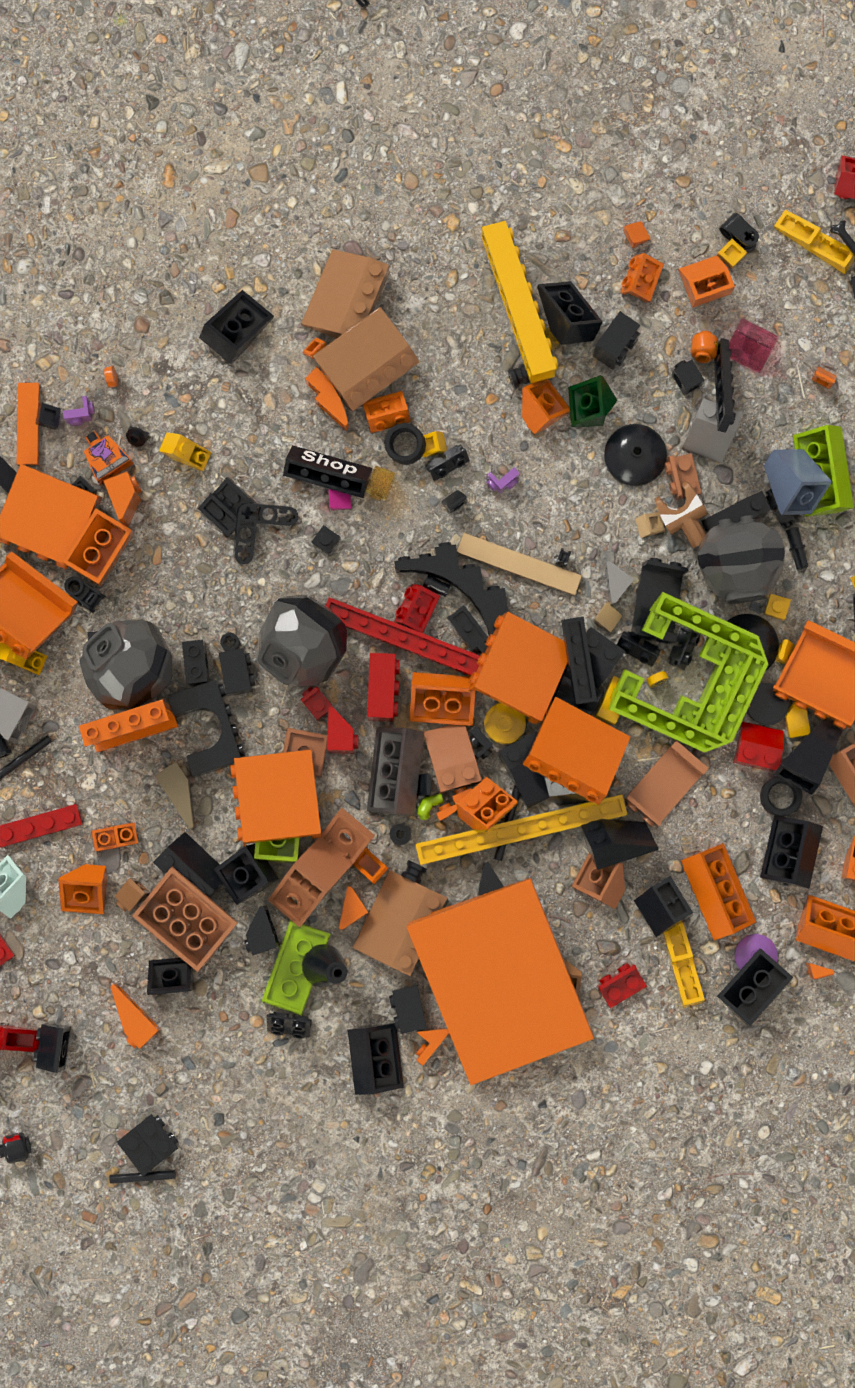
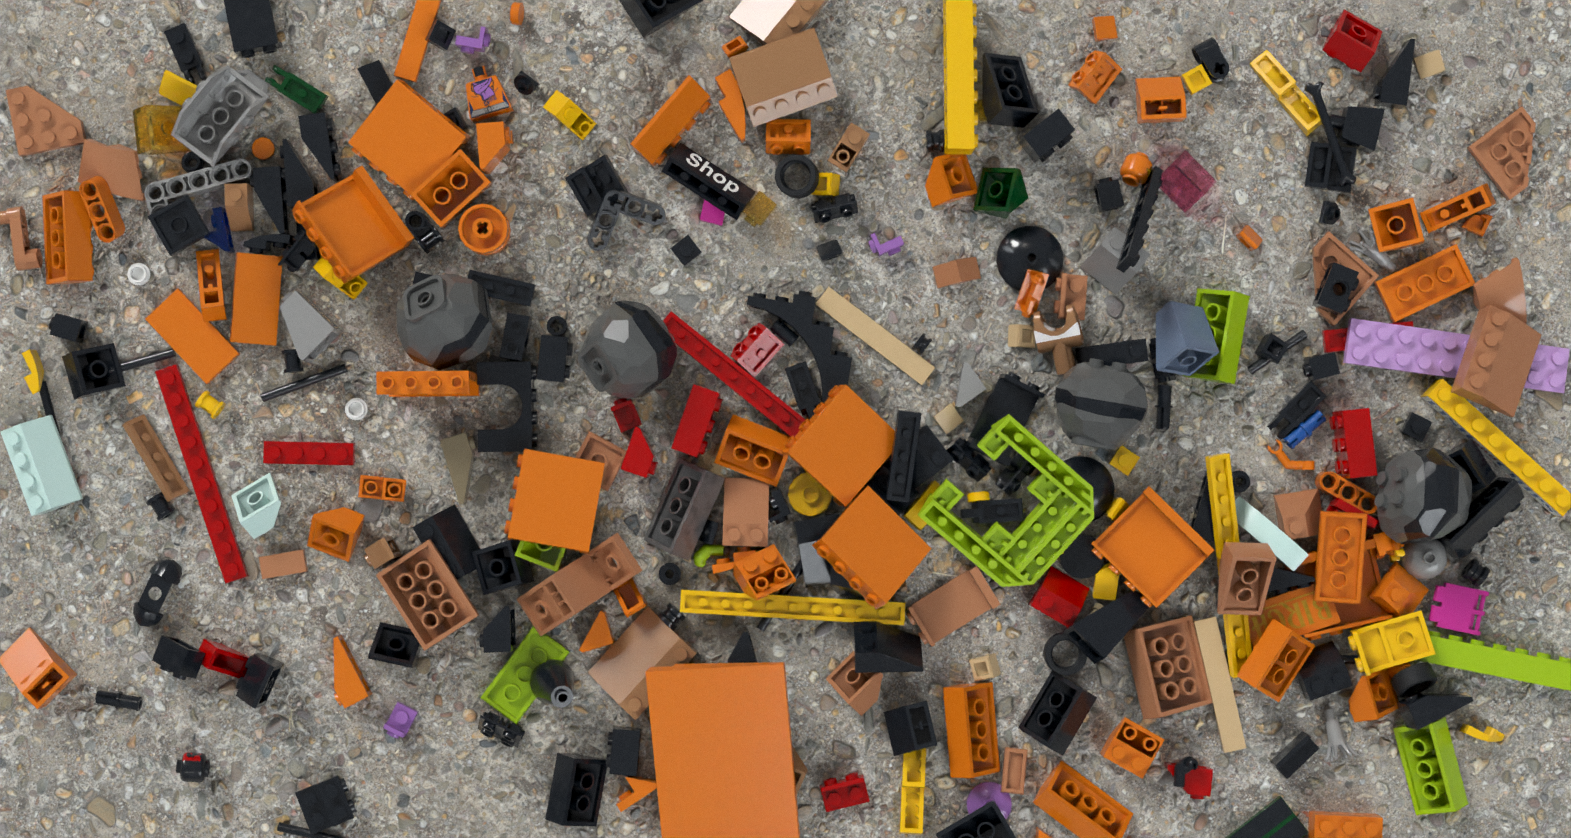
camera: 15 degrees right, 5 degrees up
(44, 934) = (283, 564): none -> nougat tile
(70, 772) = (356, 409): none -> white plate
(130, 566) = (475, 220): none -> orange wheel
(175, 622) = (505, 288): none -> black plate
(194, 1045) = (400, 720): none -> medium lavender bracket
(277, 429) = (671, 121): none -> orange slope
(444, 403) = (849, 147): none -> medium nougat slope
(573, 485) = (956, 272): none -> nougat slope
(646, 482) = (1031, 292): none -> orange hinge
(675, 687) = (994, 510): none -> black hinge
(712, 831) = (985, 667): none -> tan slope
(769, 917) = (1014, 770): none -> nougat tile

